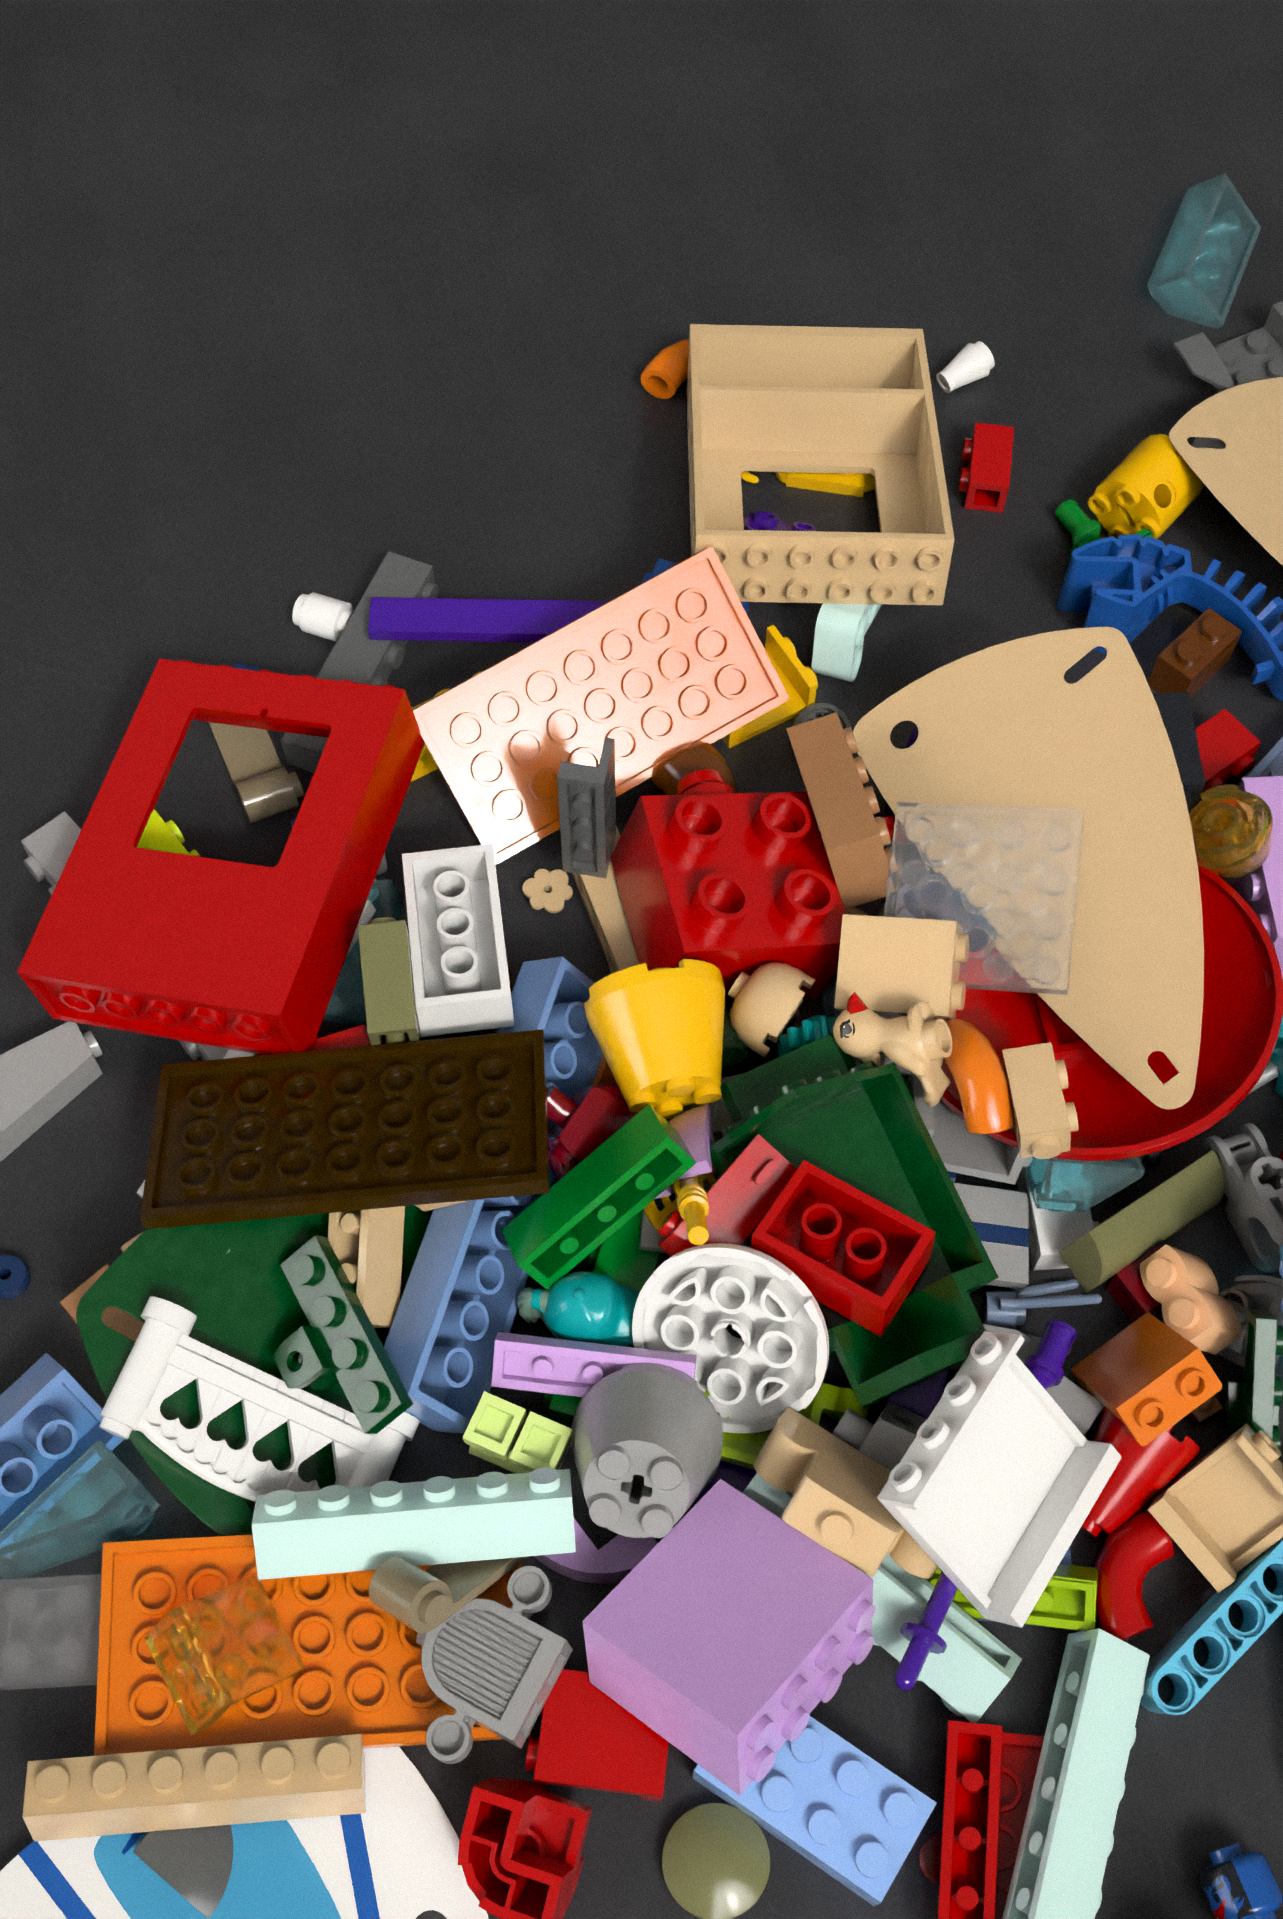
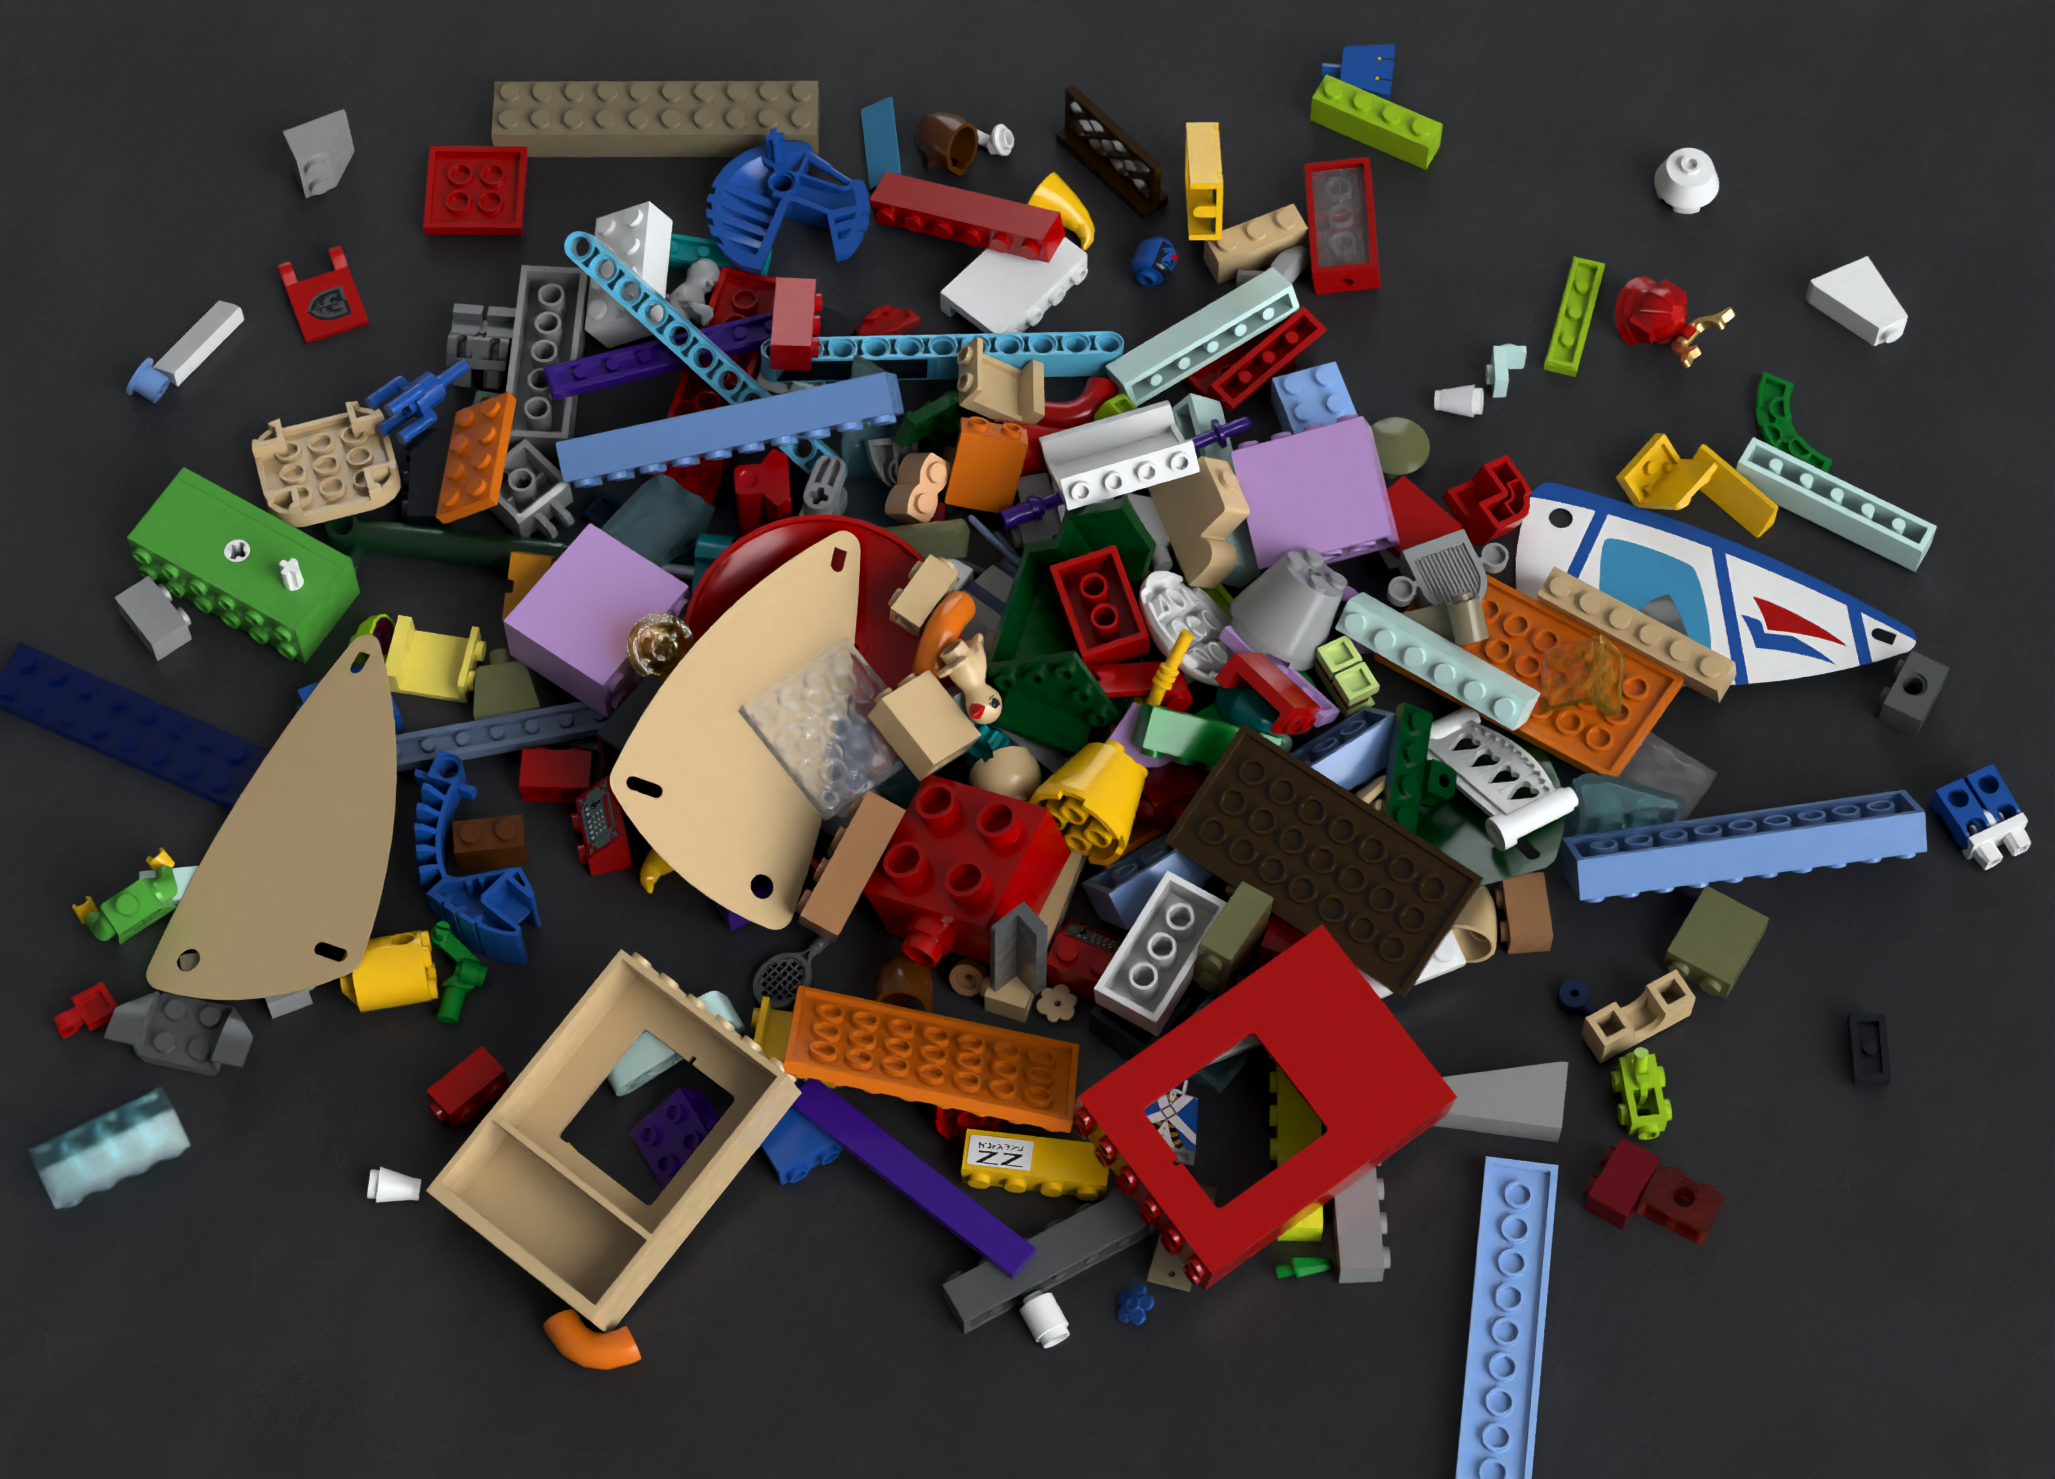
camera: 140 degrees left, 0 degrees up
(552, 928) = (1080, 957): none -> red slope
(568, 1301) = (1258, 671): none -> red panel

